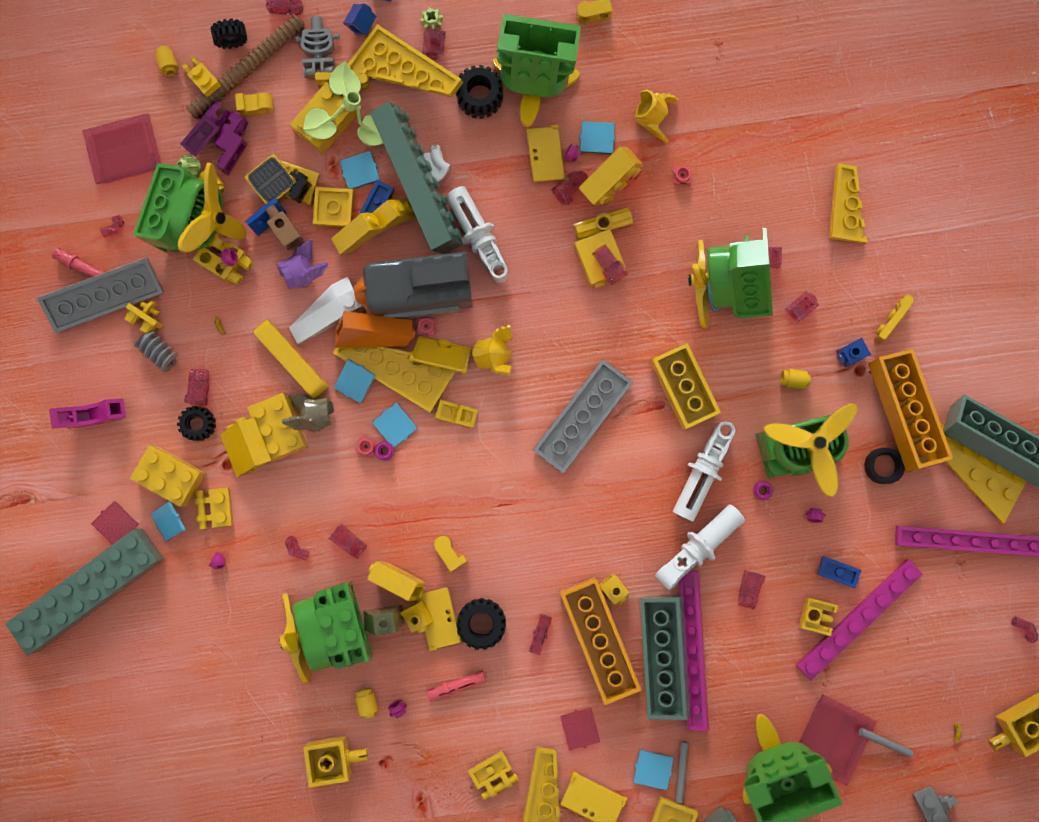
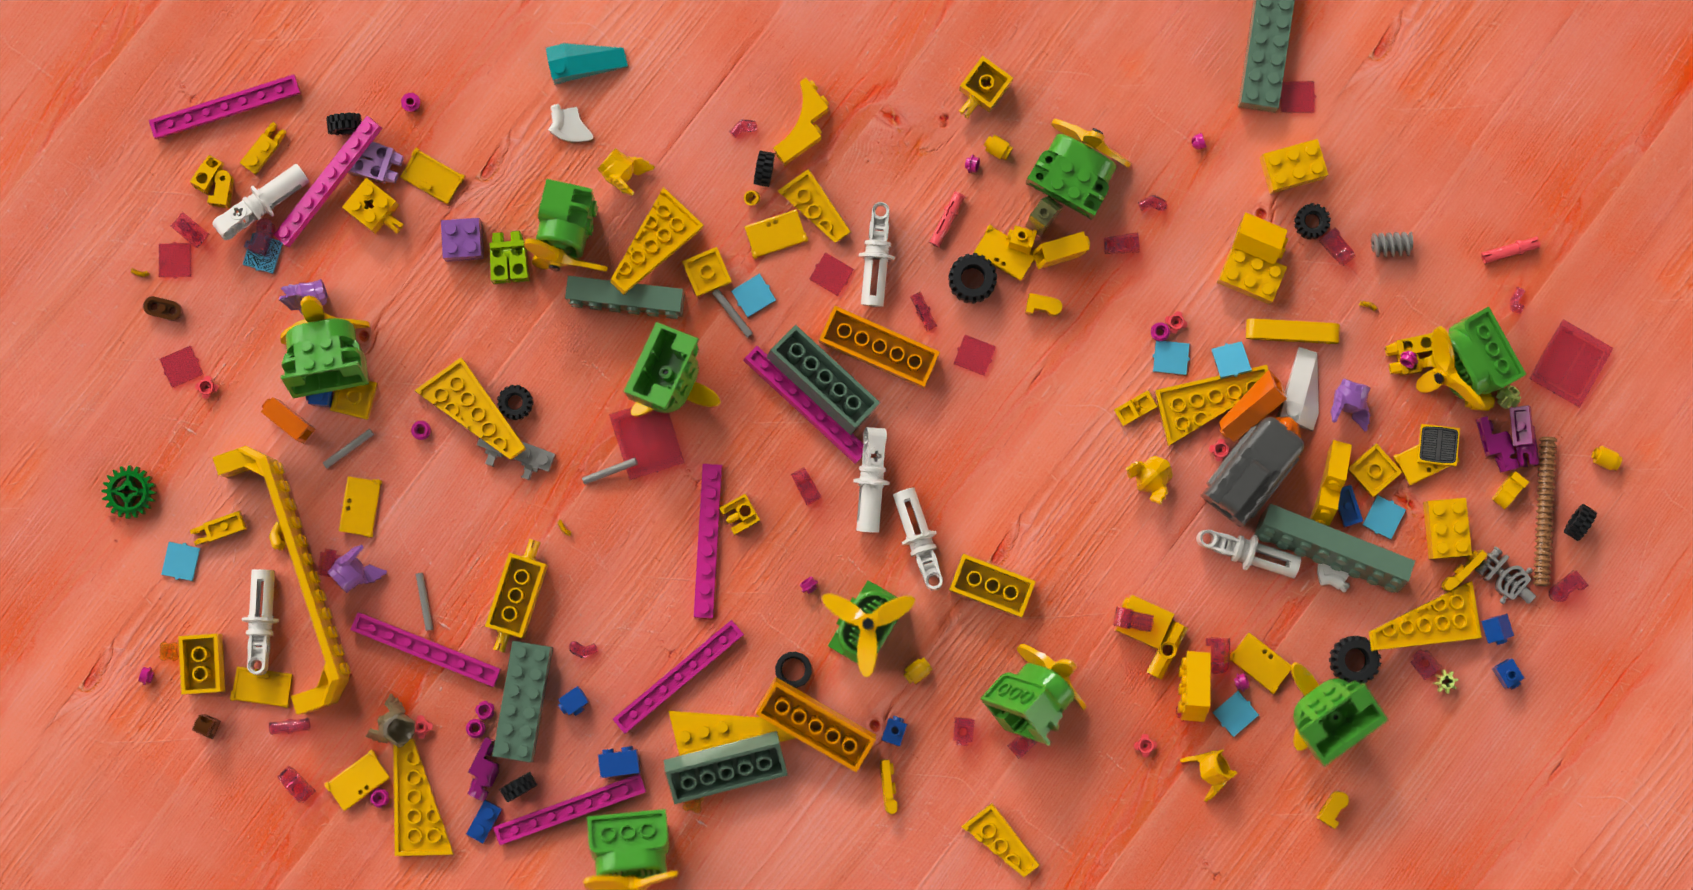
camera: 135 degrees right, 0 degrees up
(88, 415) = (1393, 153): dark pink arch -> none
(100, 294) = (1473, 244): light grey plate -> none
(136, 313) = (1418, 259): yellow hips -> none
(168, 521) = (1261, 135): medium azure piece -> none
(202, 77) = (1566, 471): yellow hinge -> none
(220, 508) = (1234, 179): yellow plate -> none
(259, 219) = (1415, 415): blue plate -> none
(288, 233) = (1384, 415): medium nougat torso -> none
(300, 188) = (1410, 458): black bracket -> none
(313, 413) = (1237, 308): dark tan helmet -> none
(346, 83) = (1457, 567): yellowish green plant -> none
(452, 358) = (1197, 432): yellow door -> none
(489, 770) = (867, 185): yellow plate -> none
(529, 716) = (876, 248): none -> white piece
(533, 565) = (974, 355): none -> clear pink piece
(582, 416) = (1043, 494): light grey plate -> none
(614, 589) = (902, 392): yellow brick -> none
(769, 490) = (857, 567): dark pink plate -> none
(838, 572) = (754, 560): blue plate -> none

